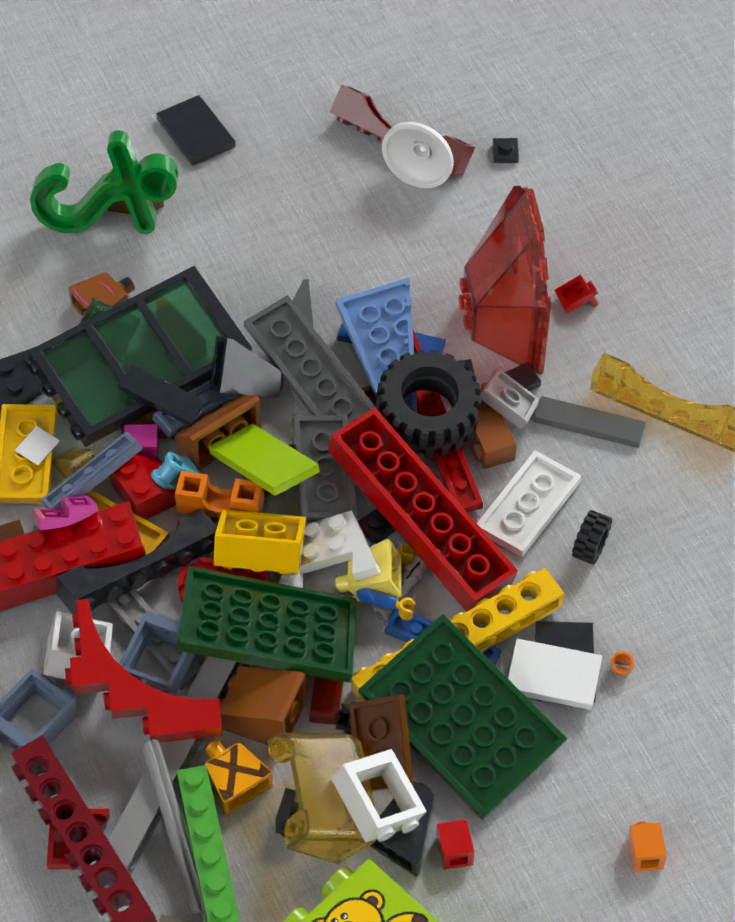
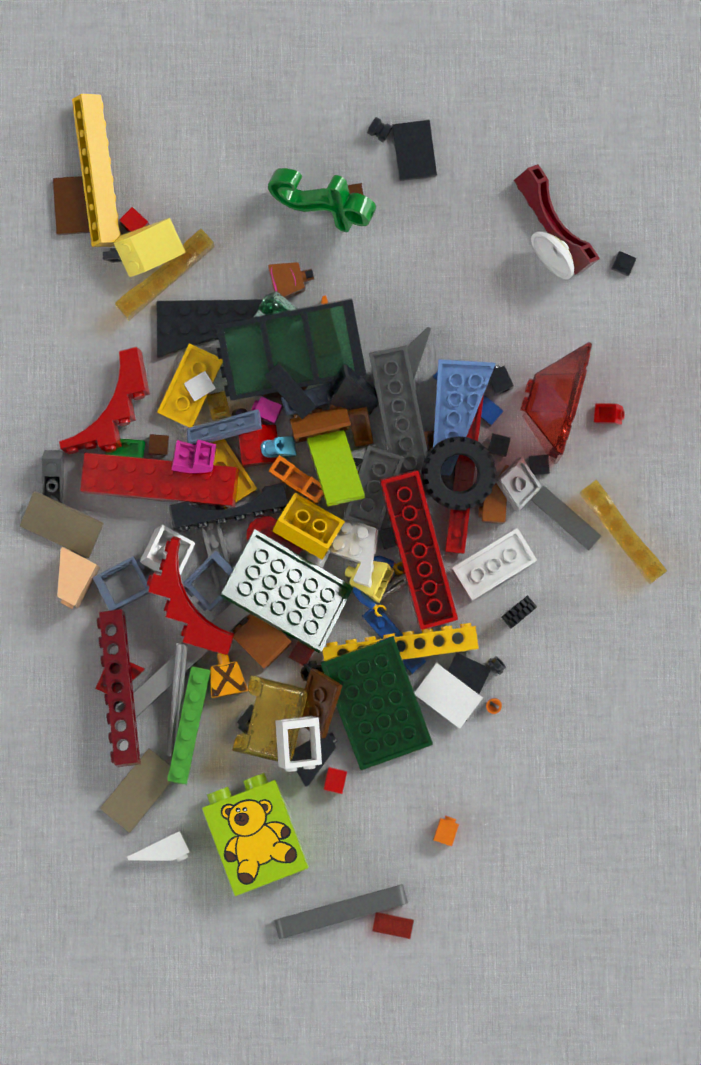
camera: 25 degrees right, 30 degrees up
(143, 121) = (379, 129): none -> black wheel
(274, 414) = (360, 427): none -> reddish brown tile
(426, 308) = (500, 380): none -> black brick
(597, 614) = (496, 665): none -> black plate

